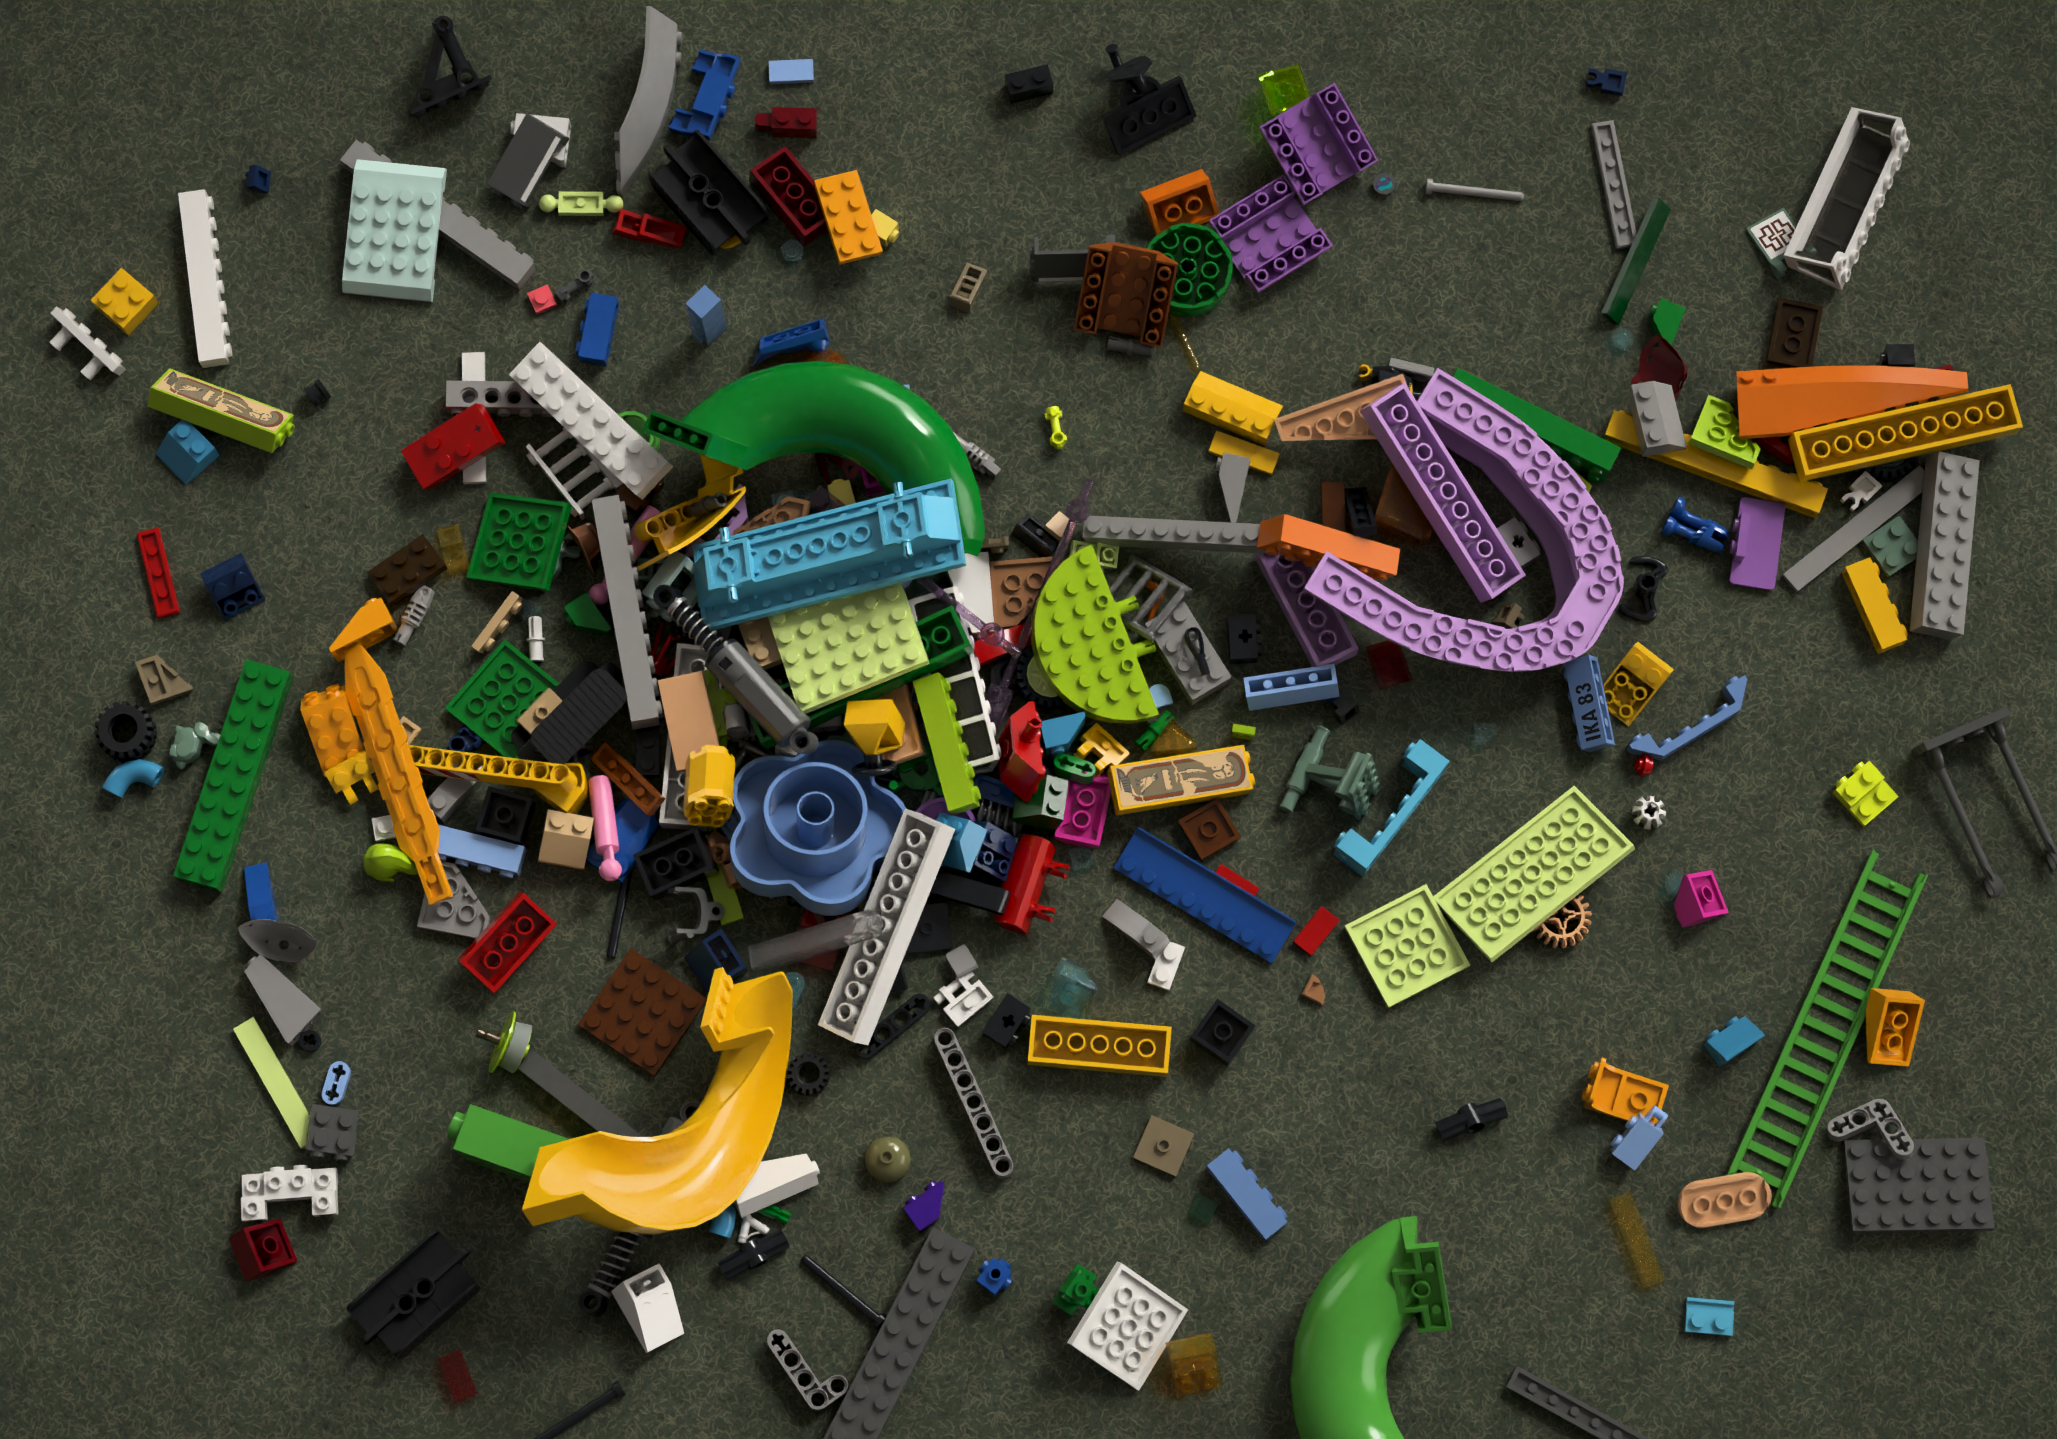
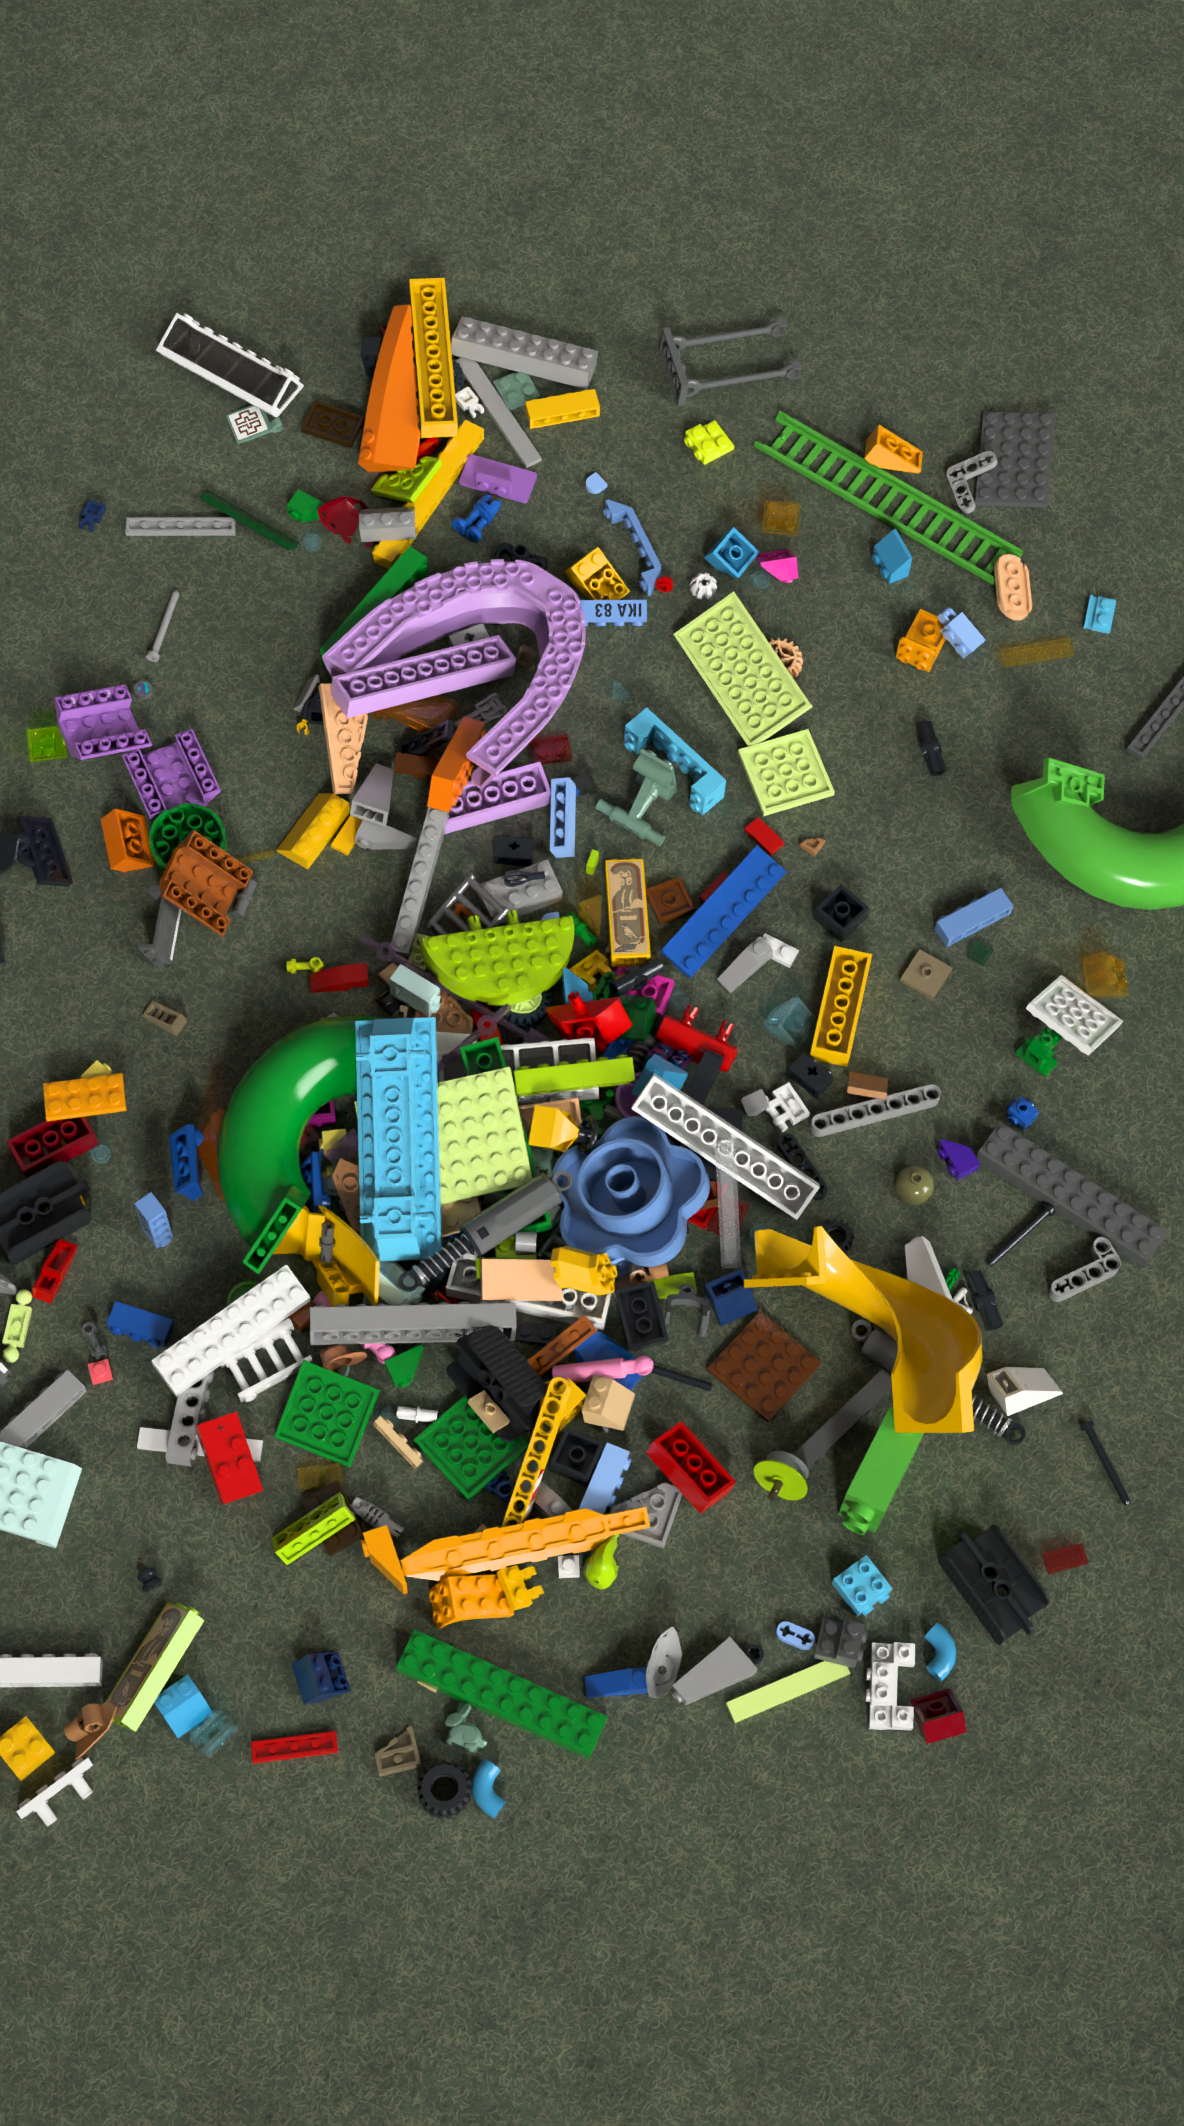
camera: 85 degrees left, 10 degrees down
(151, 365) = (90, 1726): none -> medium nougat panel
(160, 474) = (214, 1720): none -> clear light blue brick
(333, 1249) = (945, 1652): none -> dark azure cylinder
(384, 550) = (313, 1530): none -> lime fence
(396, 1149) = (862, 1586): none -> medium azure brick
(765, 484) = (313, 1179): none -> blue slope
(1001, 1088) = (867, 1085): none -> medium nougat tile
(1031, 551) = (415, 991): none -> light aqua window
(1045, 469) = (340, 978): none -> red slope
(1090, 798) = (636, 977): none -> black piece
(1279, 466) = (374, 796): none -> light grey slope
(1424, 578) = (487, 710): none -> light grey connector
(1701, 841) = (732, 553): none -> dark azure slope
(1762, 895) = (781, 518): none -> clear yellow slope
(1774, 662) = (595, 484): none -> light blue tile

